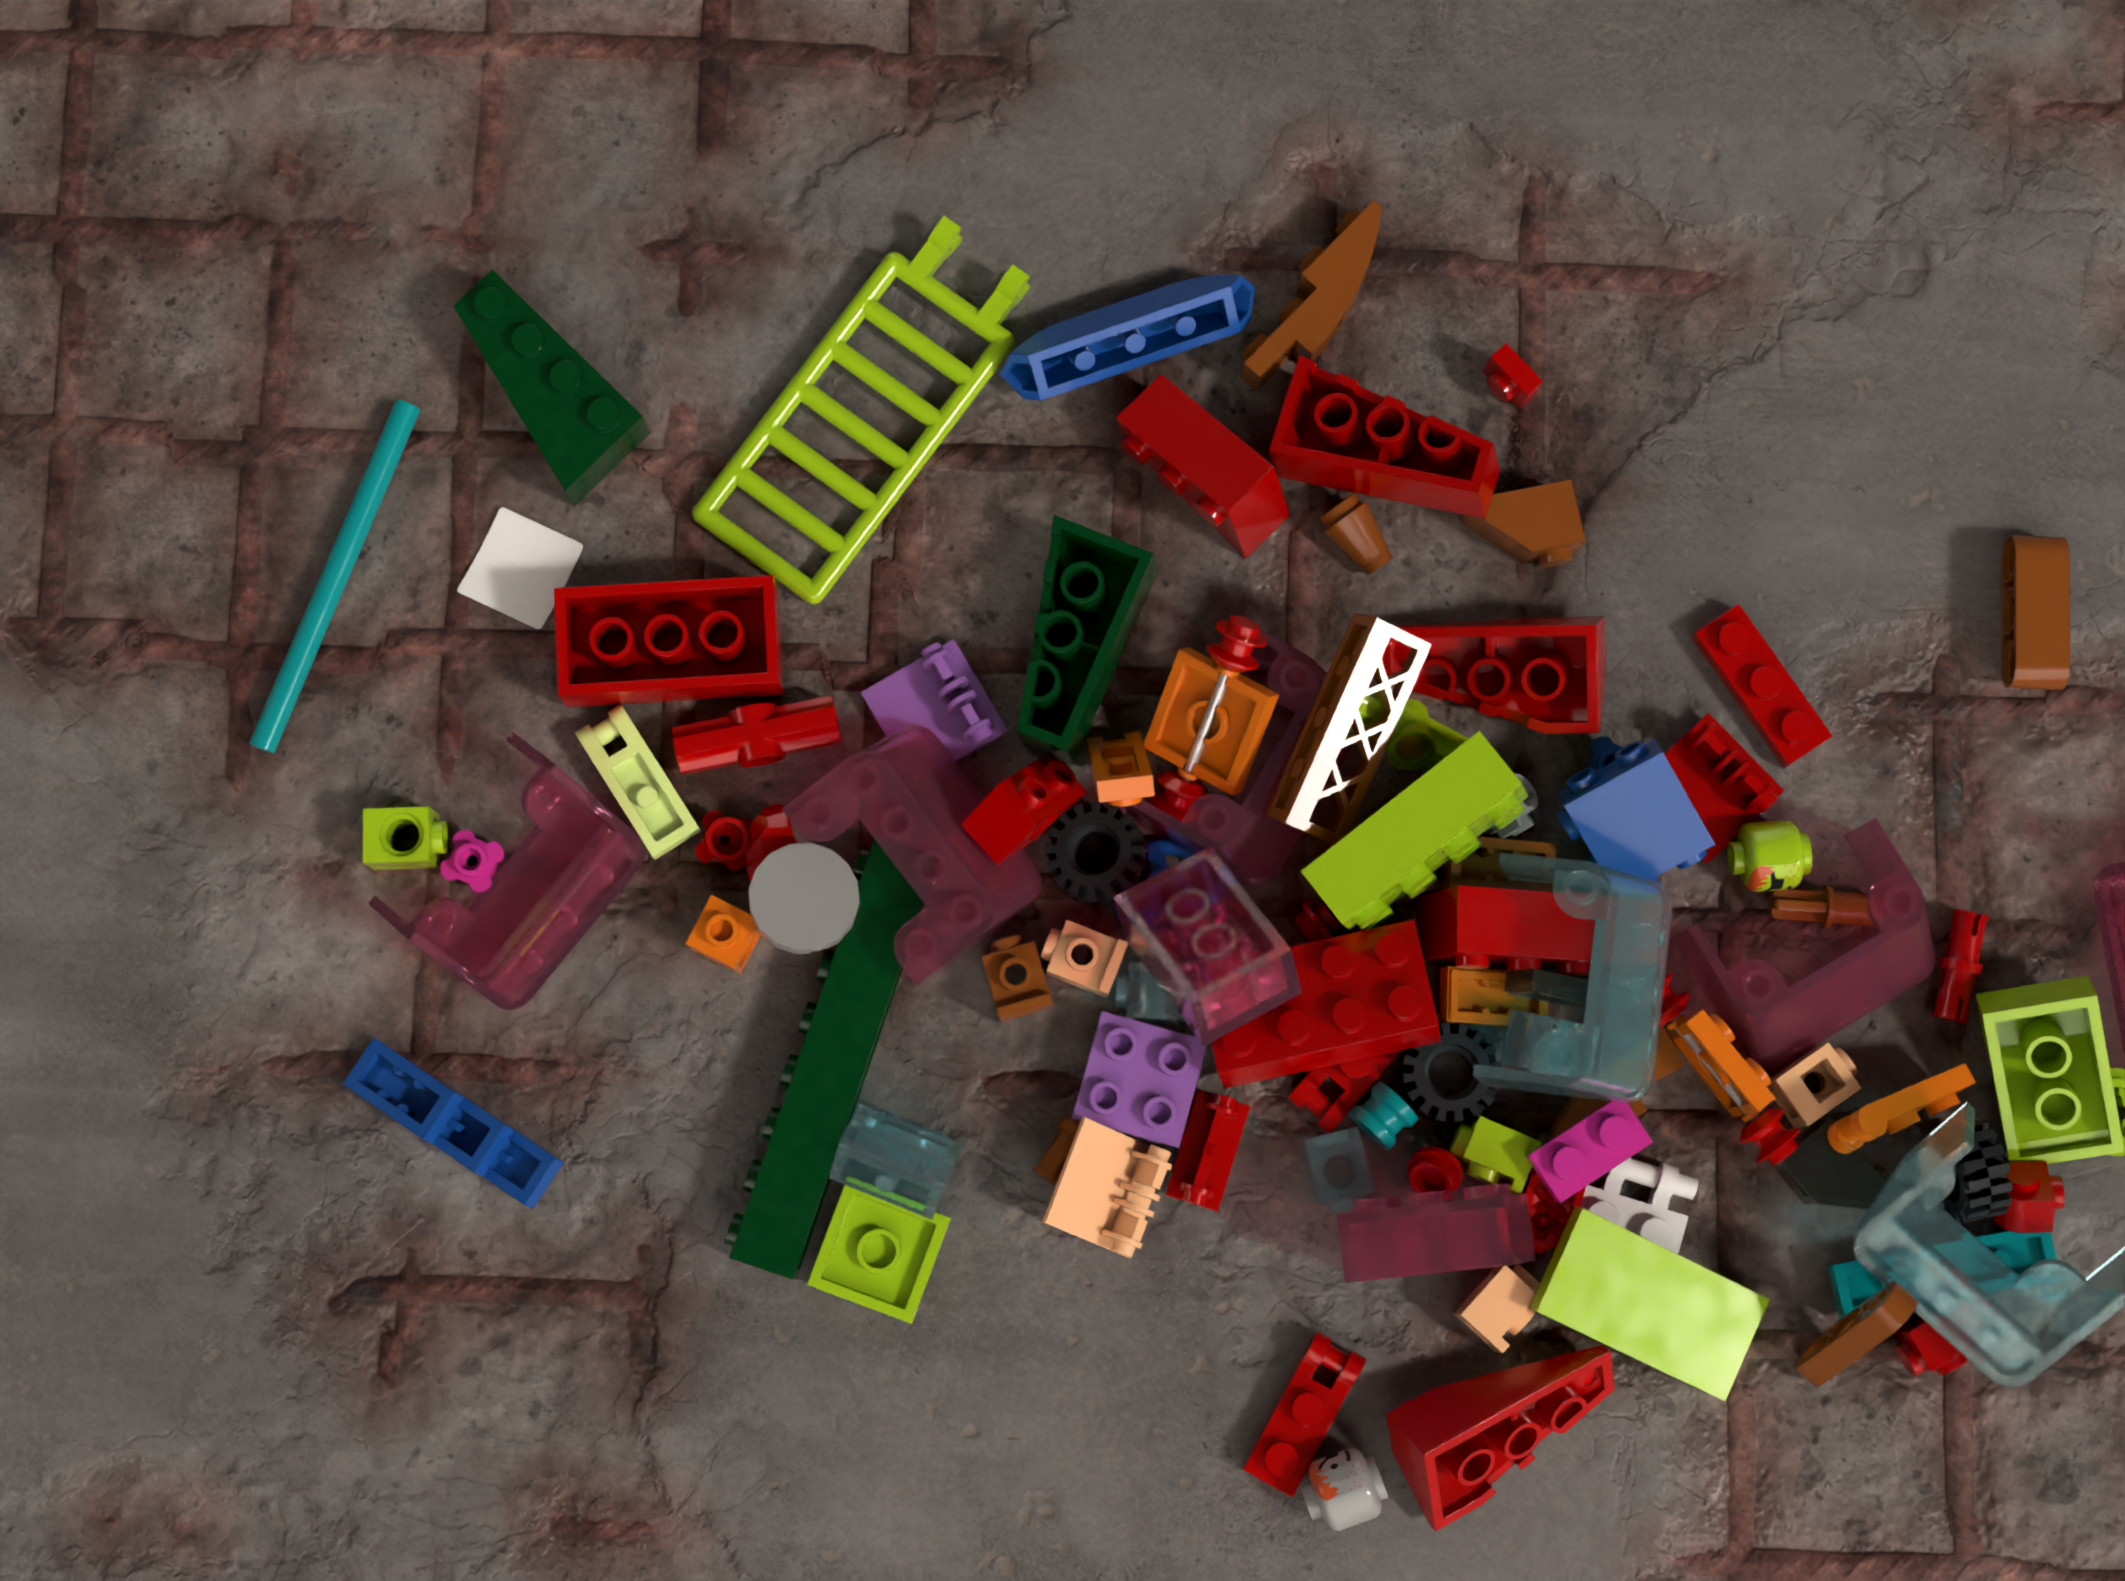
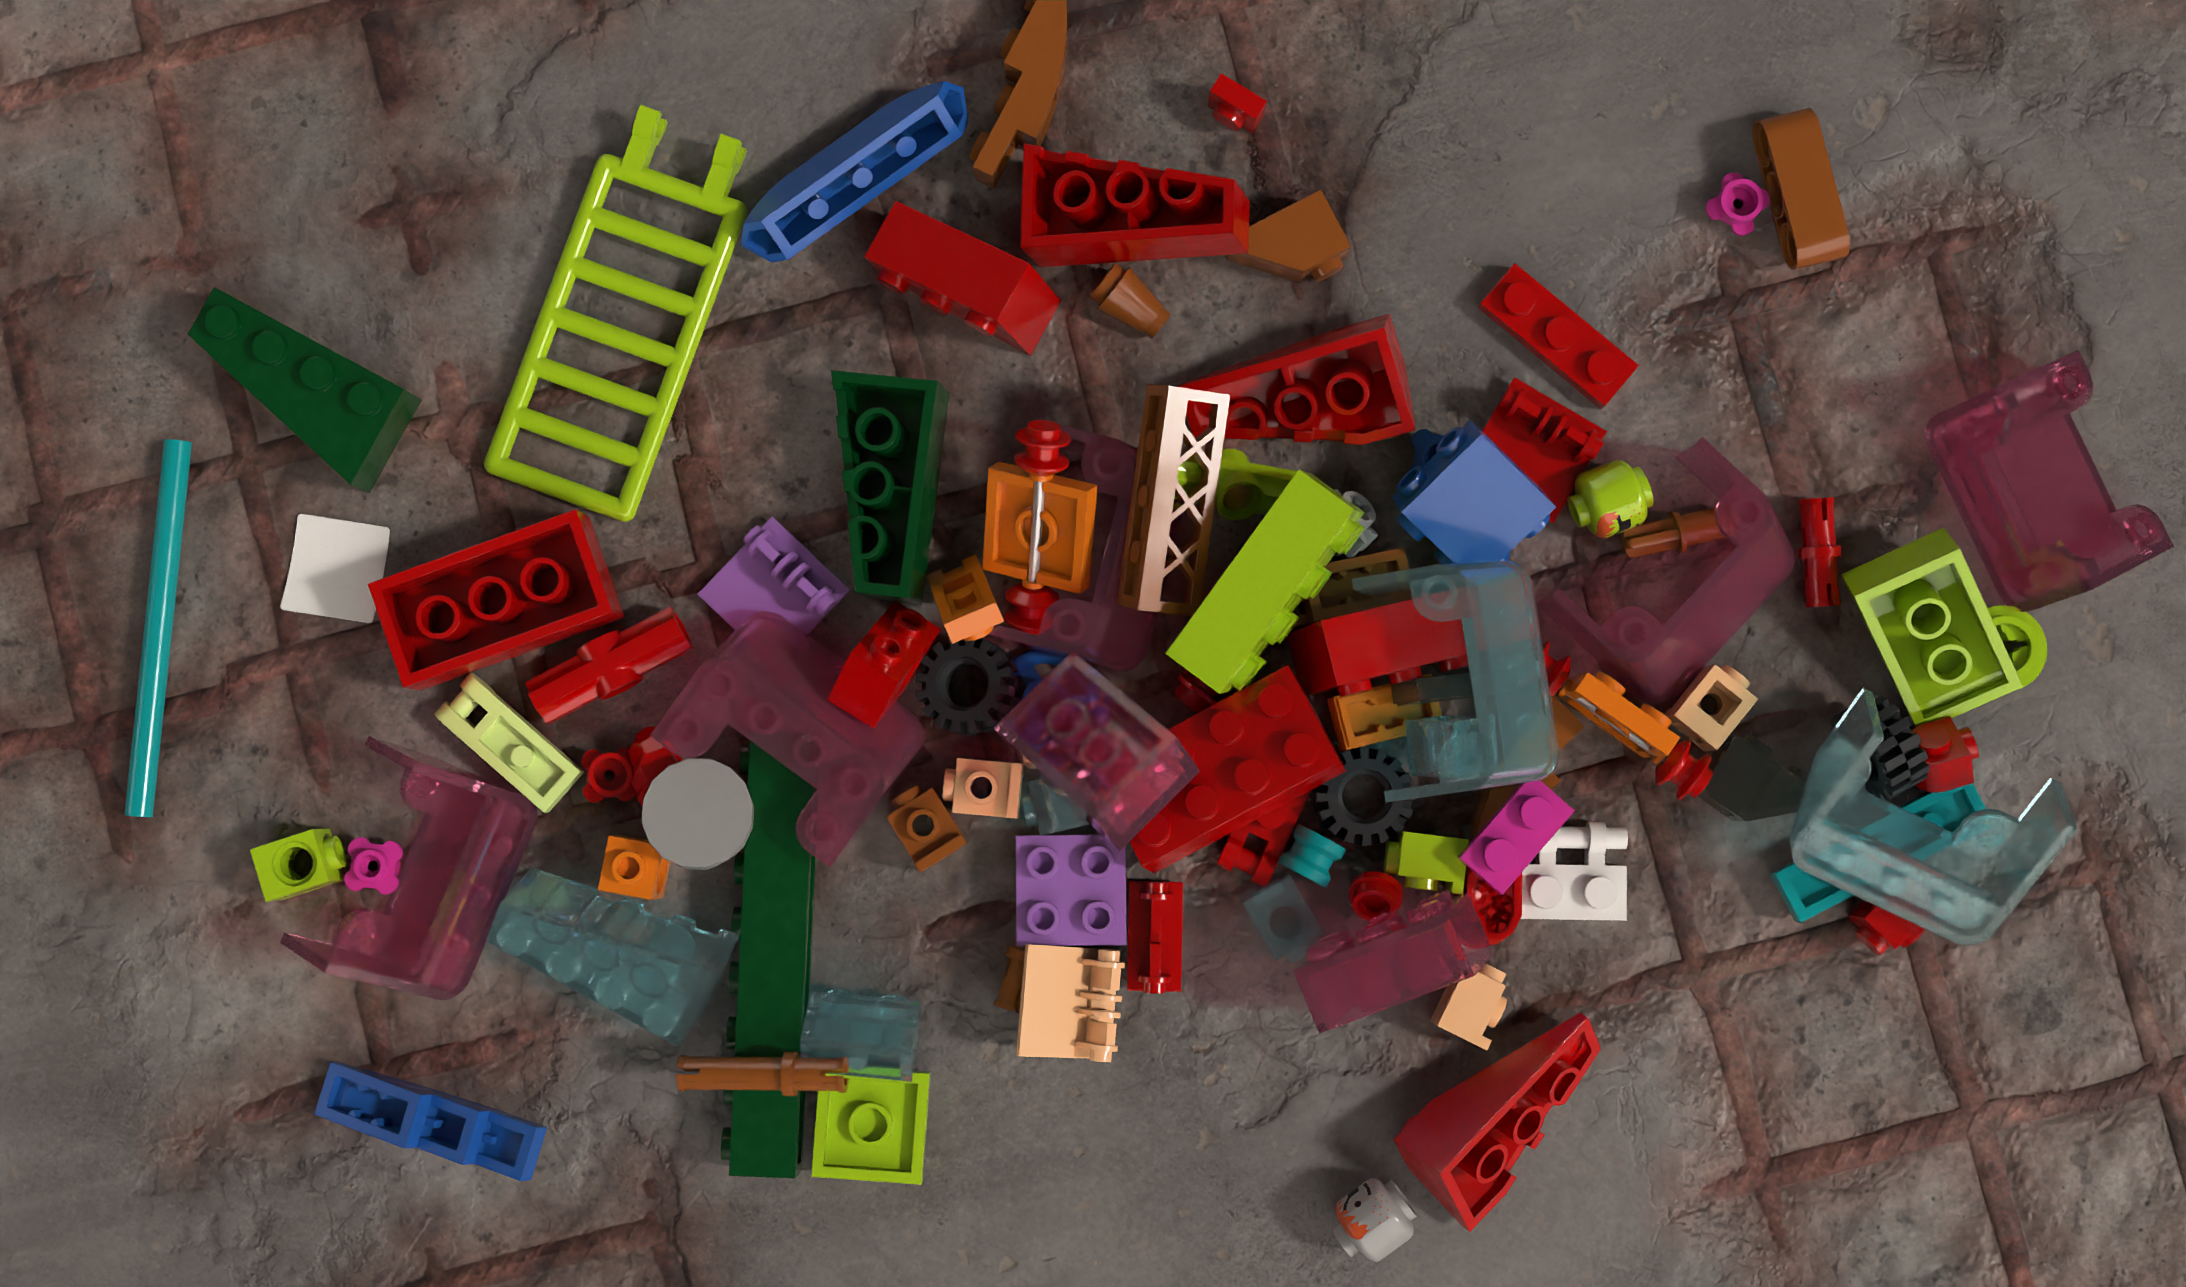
camera: 10 degrees left, 5 degrees up
(683, 1009) = (614, 951): none -> clear light blue wedge
(796, 1167) = (763, 1073): none -> dark orange pin
(1303, 1416) = (1315, 1160): red plate -> none
(1649, 1303) = (1612, 961): lime tile -> none
(1856, 1334) = (1816, 935): dark orange beam -> none
(1899, 1109) = (1799, 710): orange plate -> none
(1981, 599) = (1748, 192): none -> dark pink plate

